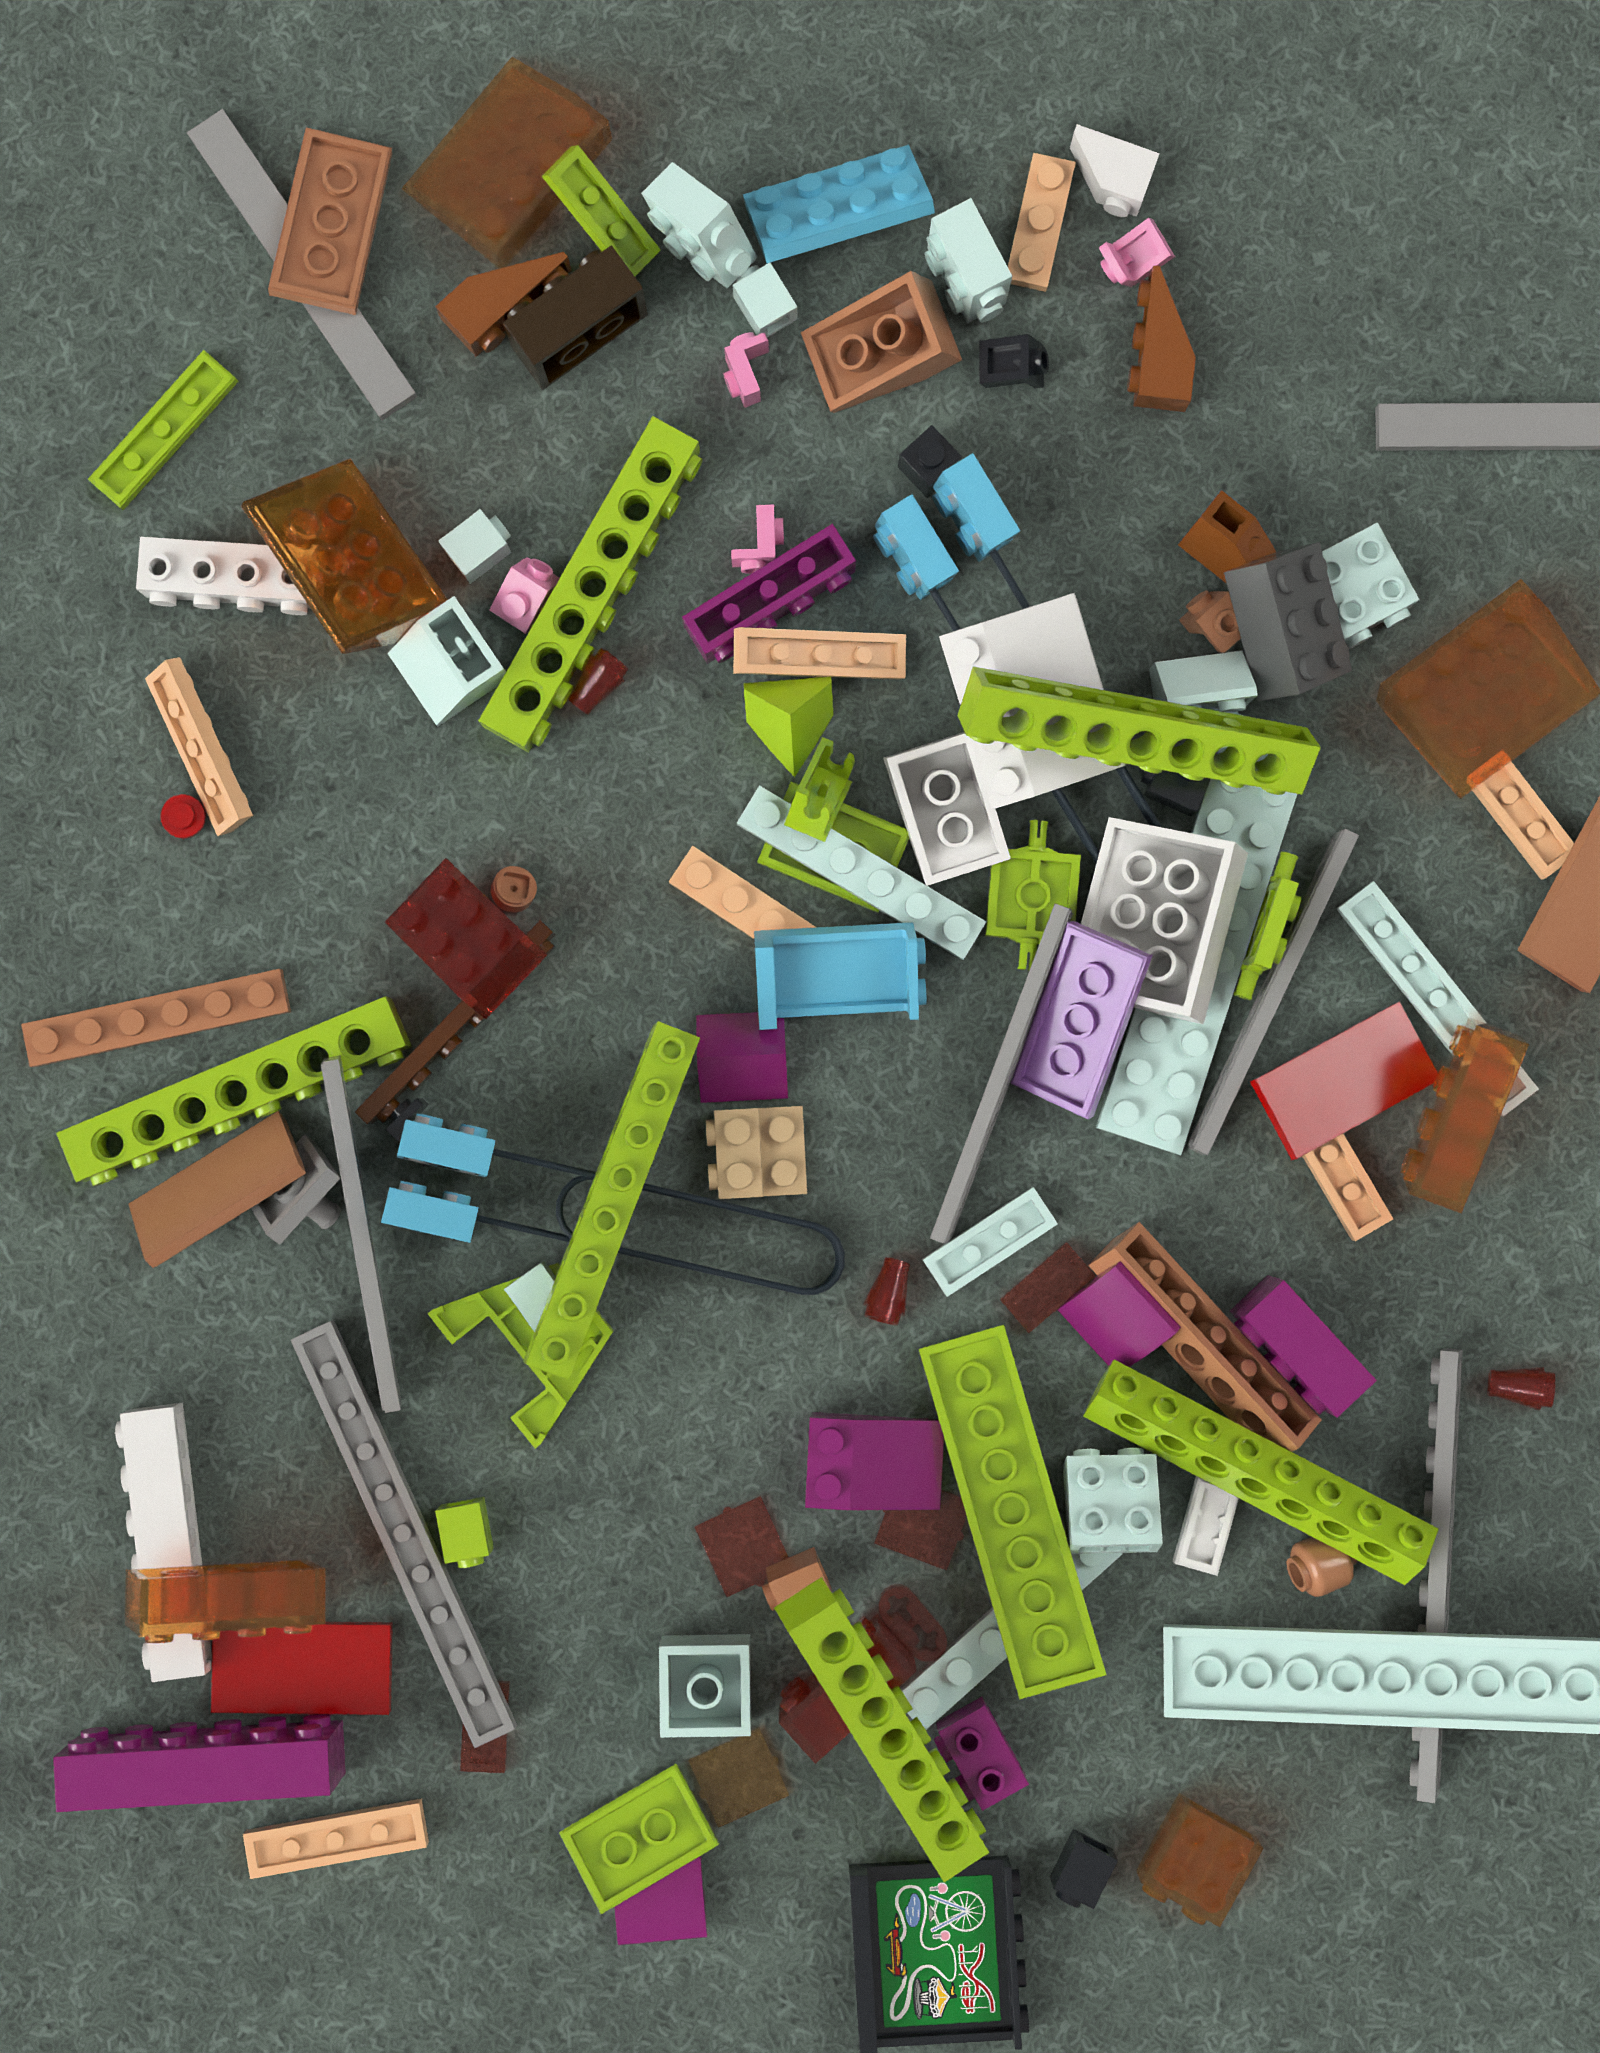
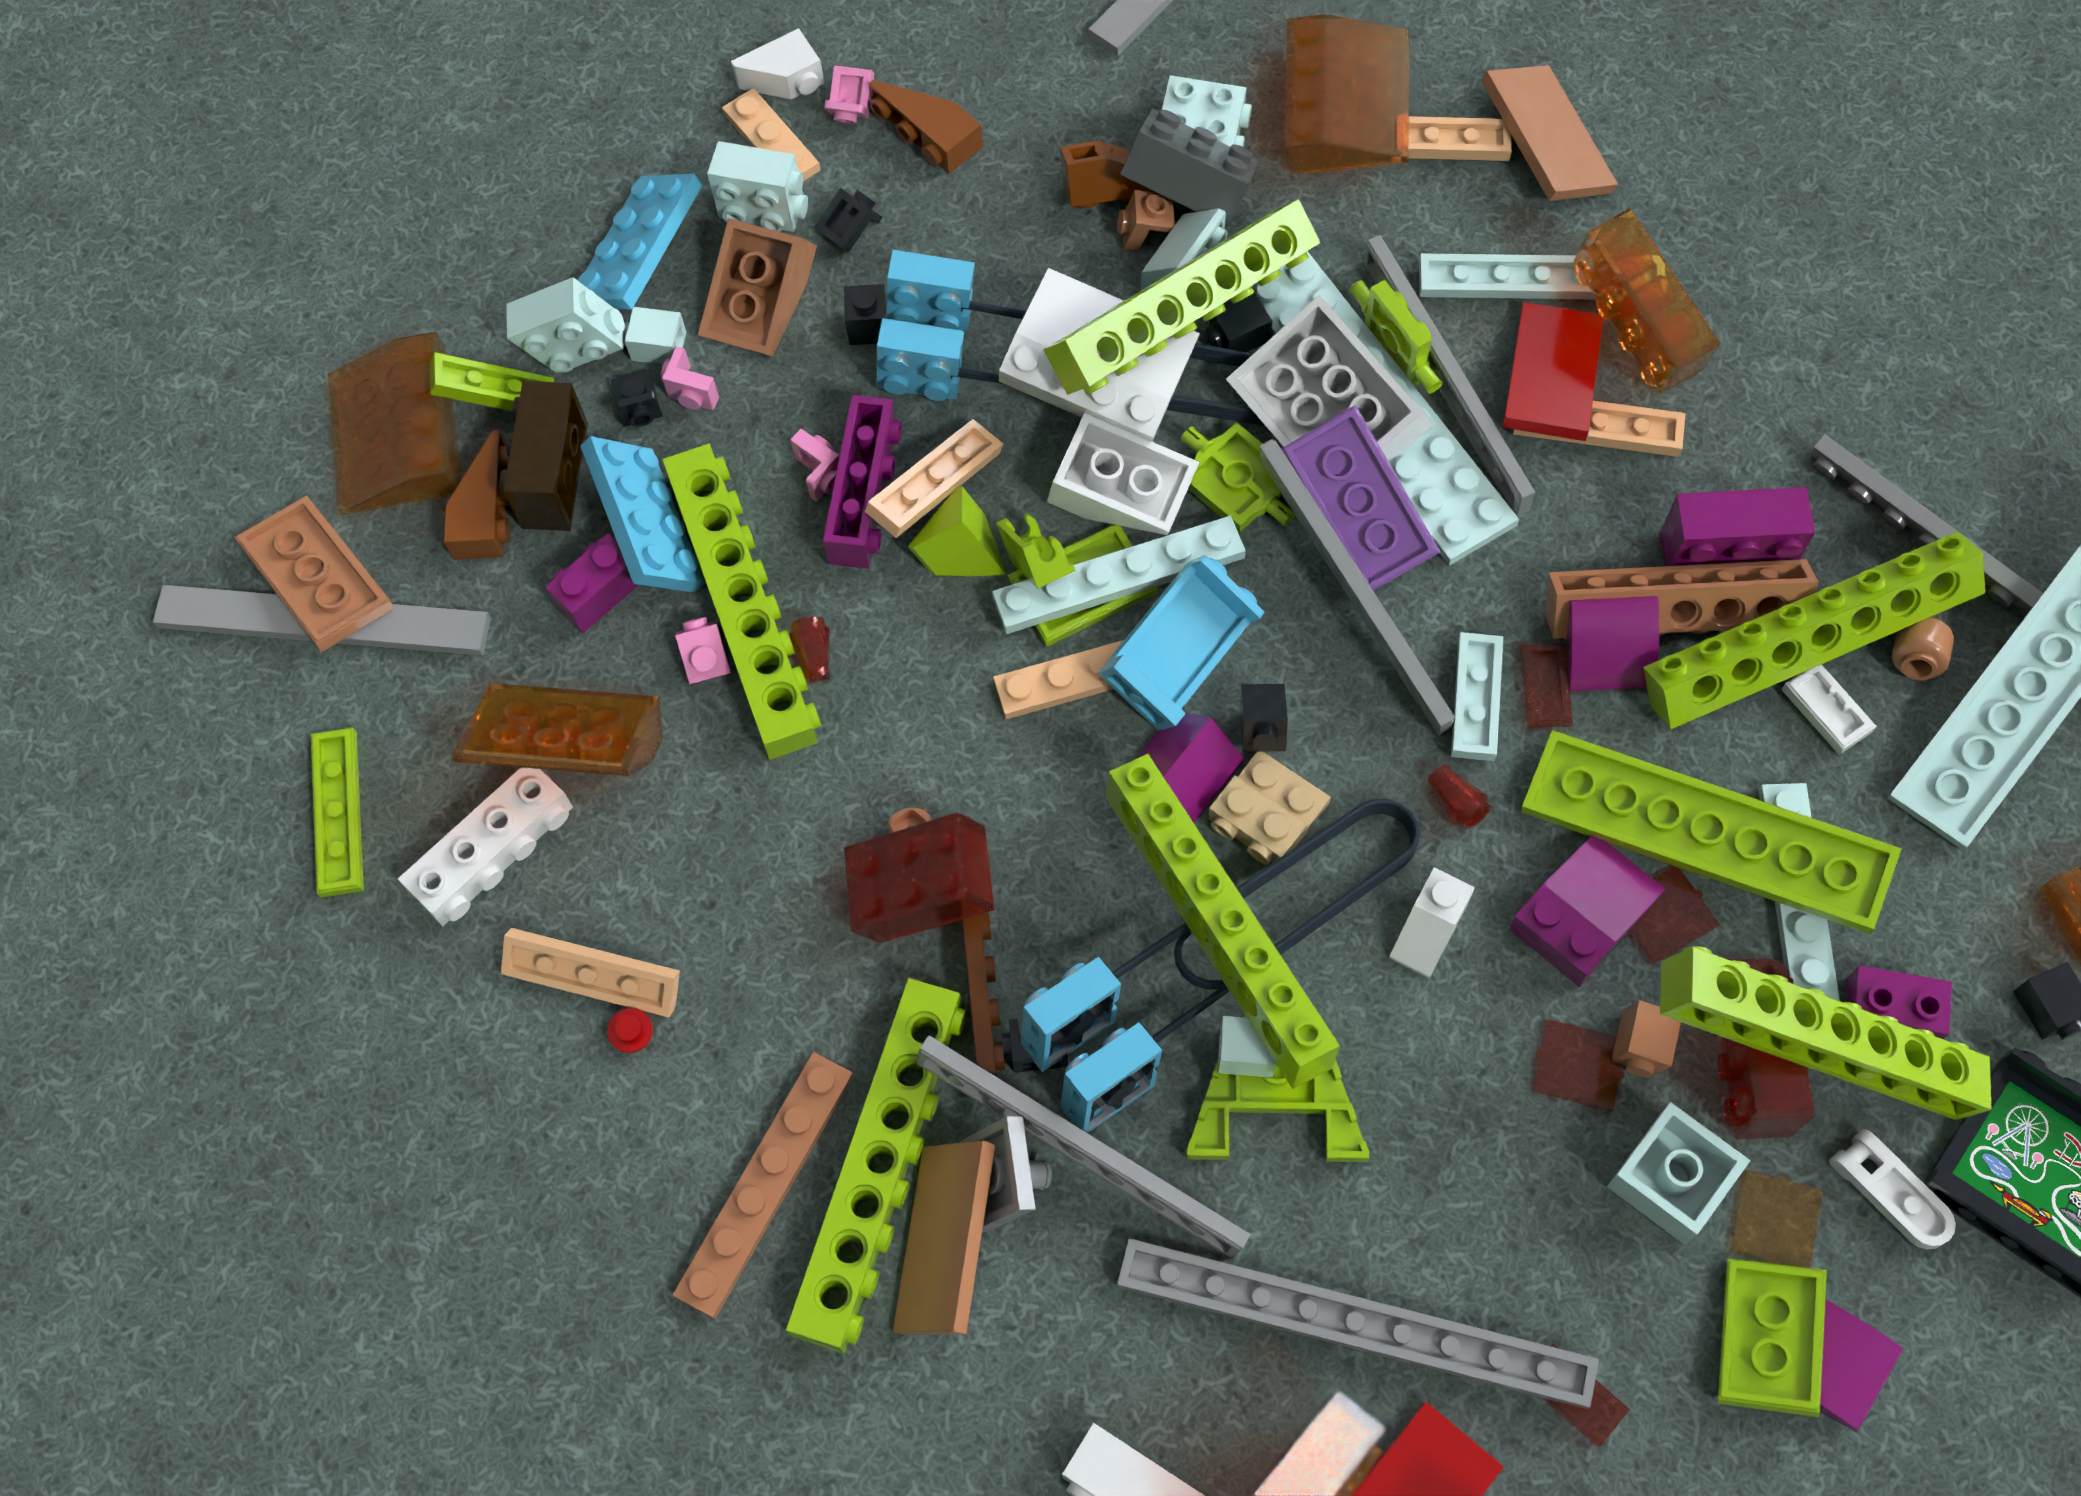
camera: 45 degrees left, 20 degrees down
(446, 661) = (699, 736): light aqua slope -> none
(464, 1532) = (1395, 1271): lime brick -> none
(476, 545) = (635, 654): light aqua brick -> none
(506, 457) = (591, 584): none -> magenta brick
(592, 442) = (643, 515): none -> medium azure plate
(698, 337) = (636, 399): none -> black bracket
(762, 1353) = (1431, 922): none -> white slope
(826, 1091) = (1263, 717): none -> black brick
(828, 1851) = (1896, 1191): none -> white plate
(1112, 1502) = (1759, 751): light aqua brick -> none
(1523, 1386) = (1886, 418): clear red cone -> none

